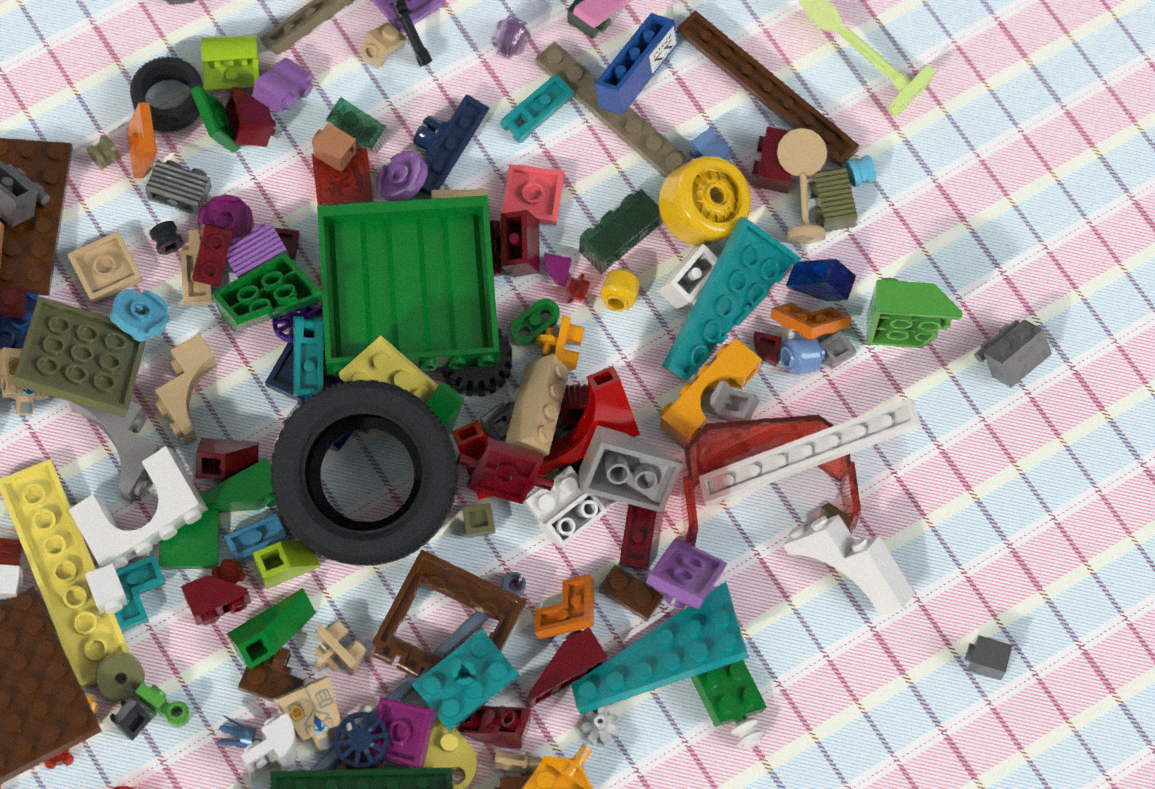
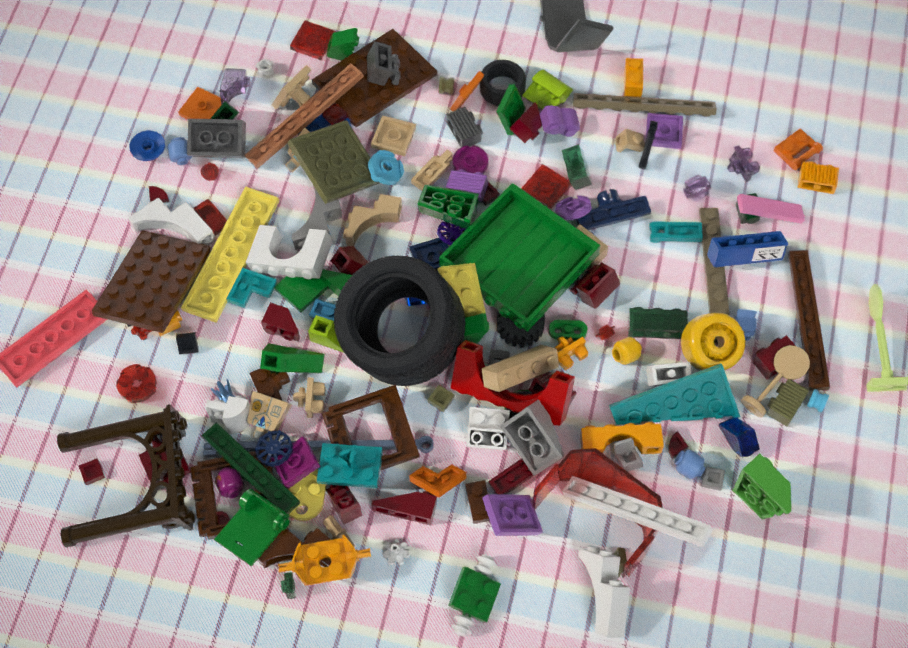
camera: 50 degrees right, 5 degrees down
(106, 589) = (236, 273): white brick -> none
(119, 663) = (194, 319): olive piece -> none
(155, 699) = (208, 358): bright green plate -> none
(166, 237) = (434, 145): black wheel -> none
(211, 254) = (444, 166): dark red bracket -> none
(230, 571) = (300, 317): clear red plate -> none
(307, 356) = (438, 246): teal plate -> none
(334, 146) = (554, 167): nougat brick -> none
(505, 471) = (470, 381): dark red plate -> none
(535, 191) = (632, 269): coral plate -> none
(557, 268) = (607, 314): magenta tile -> none
(674, 651) = (466, 548): teal wing -> none
(810, 323) = (709, 452): orange plate -> none
(1014, 351) = (810, 565): flat silver brick -> none

